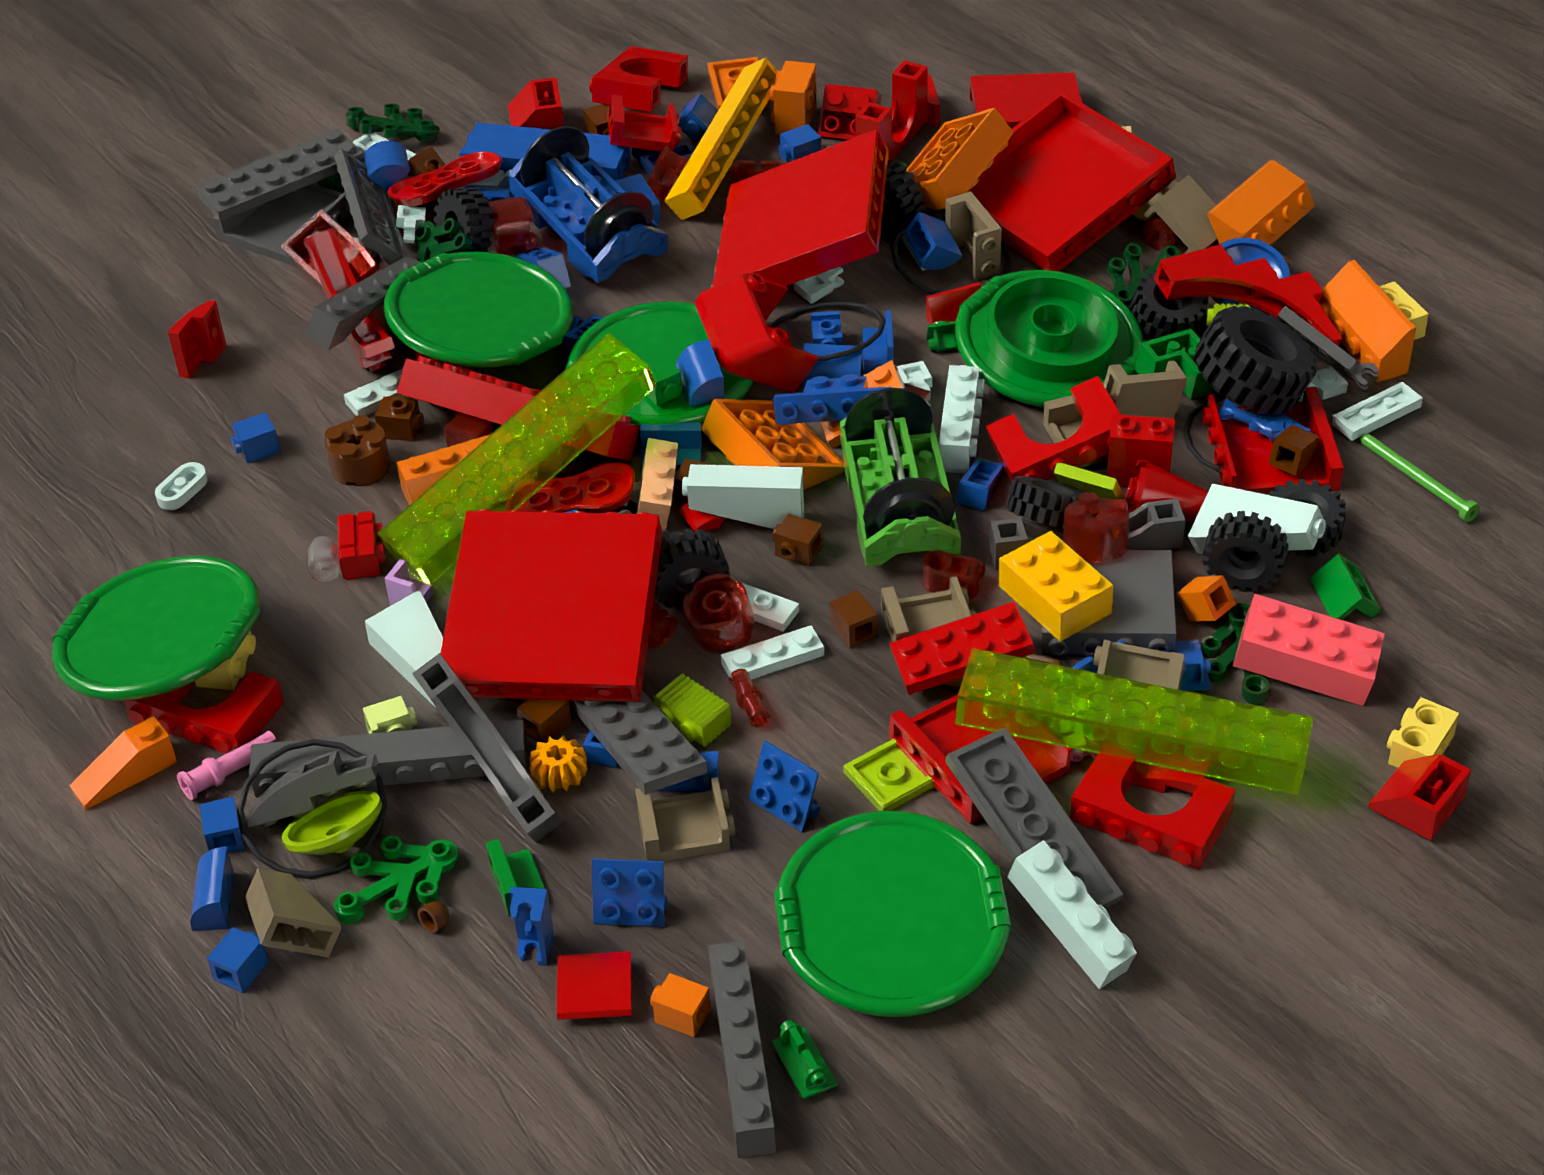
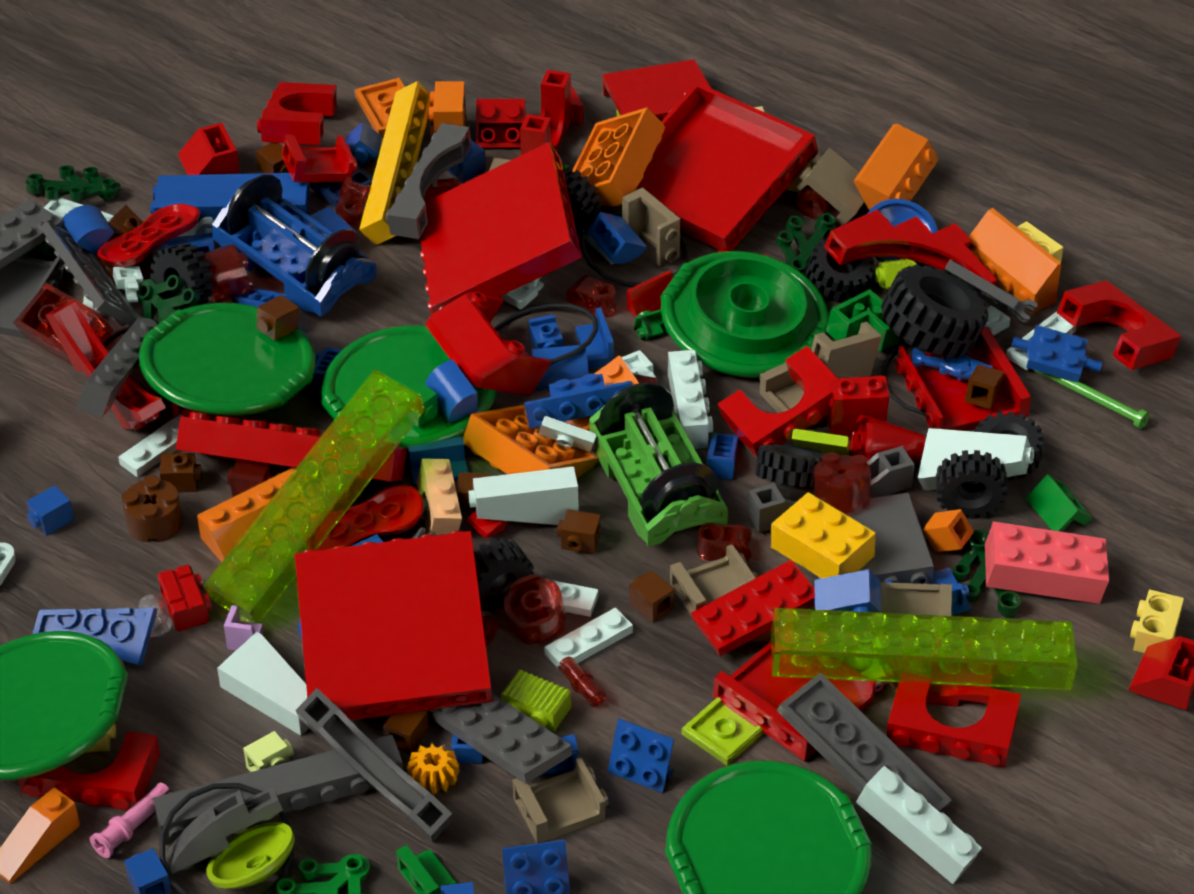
camera: 15 degrees left, 0 degrees up
(276, 569) = (121, 628): none -> wing
(541, 273) = (277, 317): none -> reddish brown brick
(774, 131) = (447, 148): none -> dark grey arch
(812, 435) = (567, 434): none -> light aqua plate
(893, 296) = (592, 294): none -> clear red piece
(1065, 644) = (849, 592): none -> brick
(1388, 426) = (1056, 353): none -> blue plate
(1500, 421) = (1147, 336): none -> red arch

